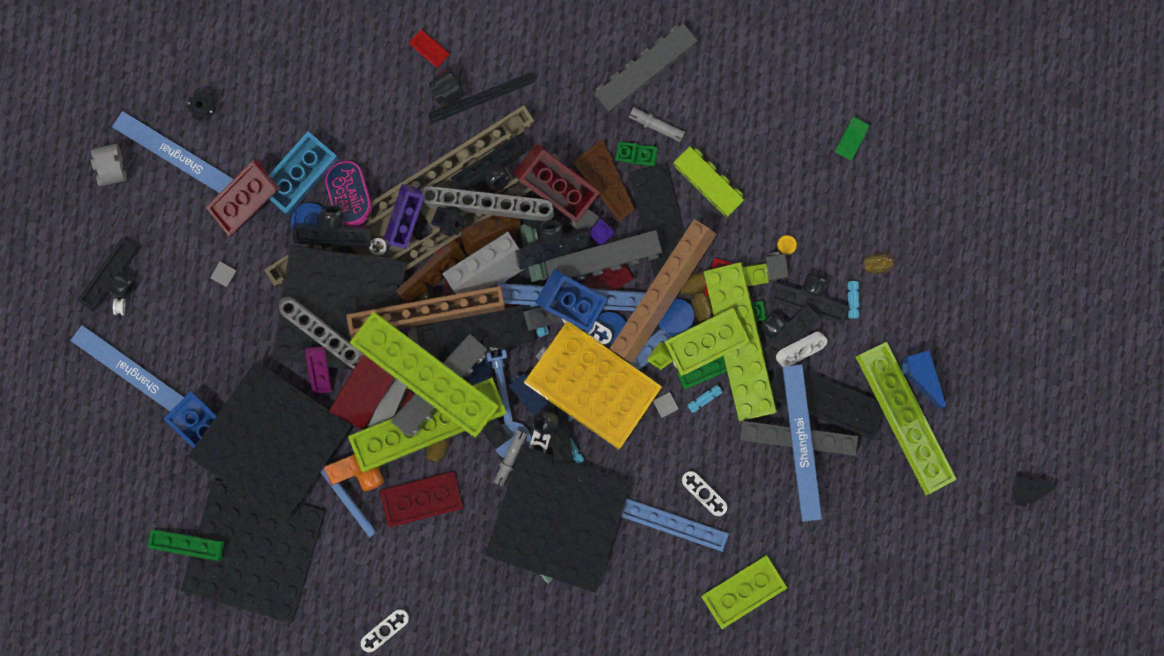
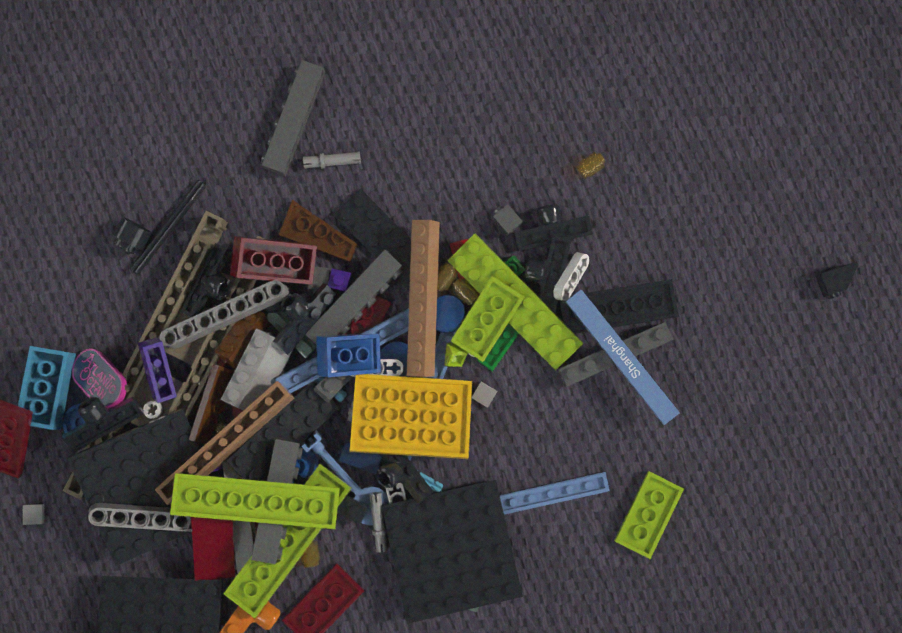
camera: 30 degrees left, 0 degrees up
(318, 369) = (163, 549): magenta tile -> none
(429, 48) = (98, 212): red tile -> none
(448, 221) = (198, 350): black brick -> none
(636, 154) = (330, 195): green slope -> none
(704, 398) = (514, 368): medium azure axle -> none
(708, 182) = (405, 182): lime brick -> none
(711, 507) = (578, 449): white beam -> none
(756, 274) = (493, 236): lime plate -> none
(787, 245) = (504, 195): yellow tile -> none
(851, 138) = (504, 72): green slope -> none
(853, 299) = (588, 208): medium azure axle -> none
(906, 418) = (696, 281): lime plate -> none
(922, 374) = (687, 235): blue slope -> none

